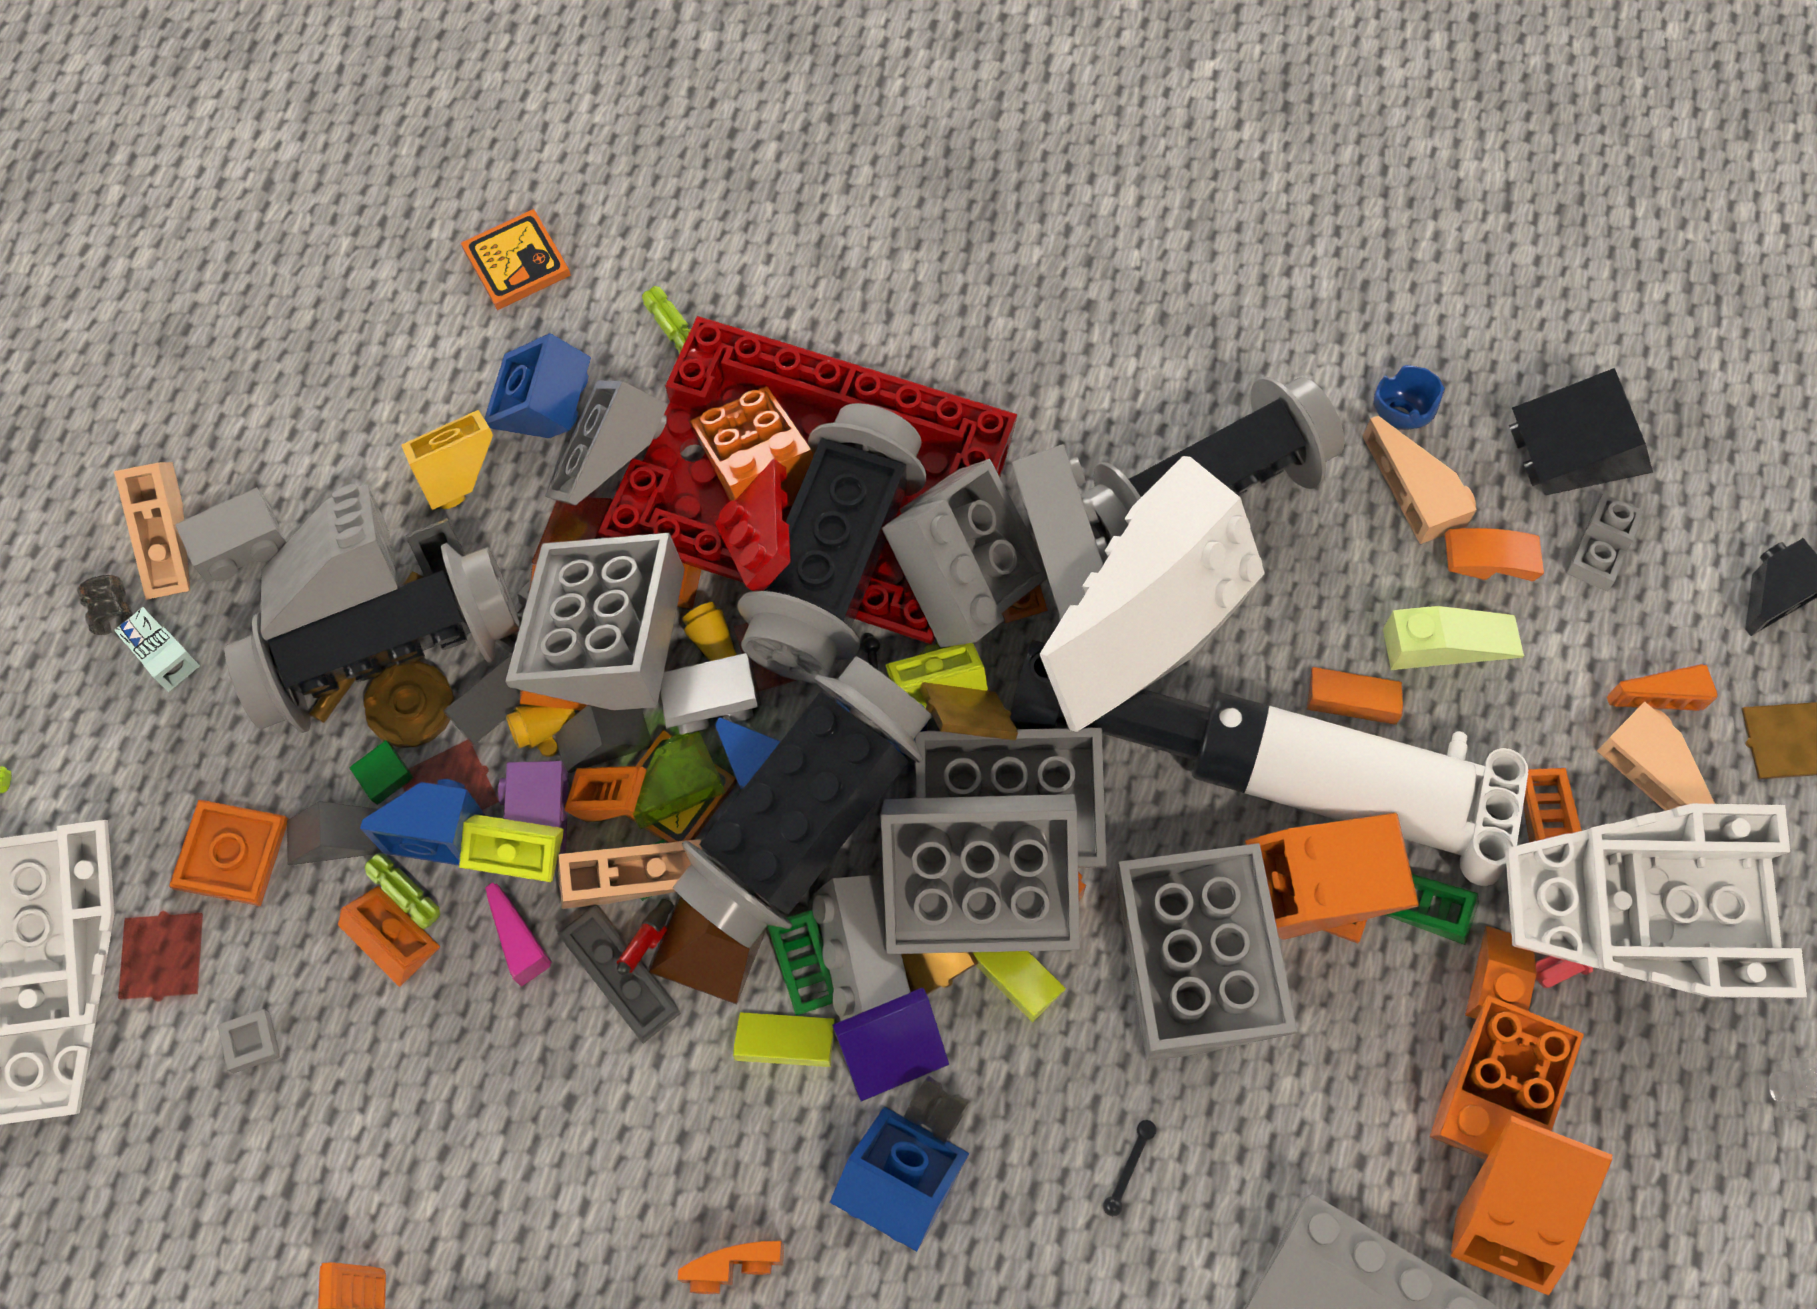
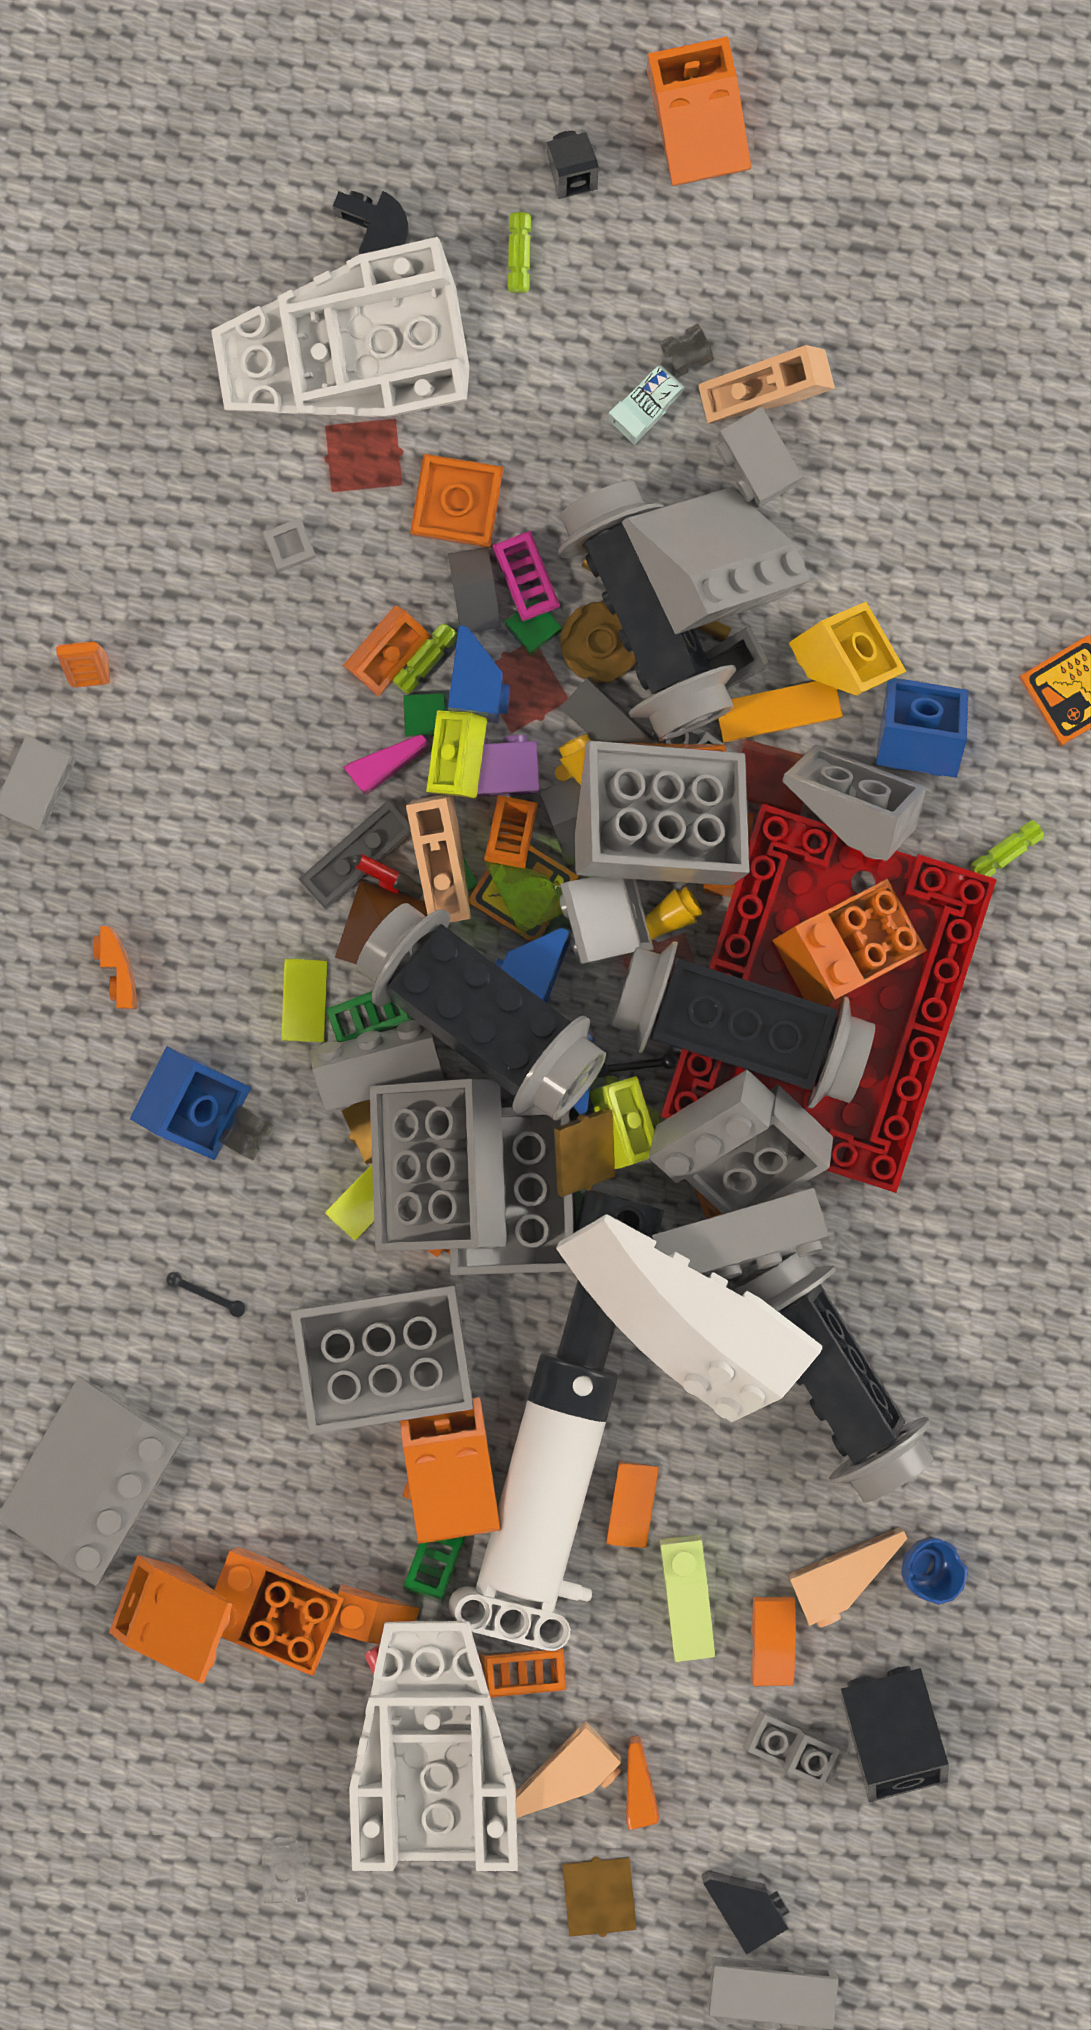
camera: 85 degrees right, 20 degrees up
(287, 773) = (516, 545): none -> dark pink slope
(465, 894) = (421, 713): none -> green tile
(505, 523) = (780, 711): none -> light orange tile
(755, 528) = (746, 952): red wing -> none
(891, 1044) = (295, 1092): dark purple tile -> none

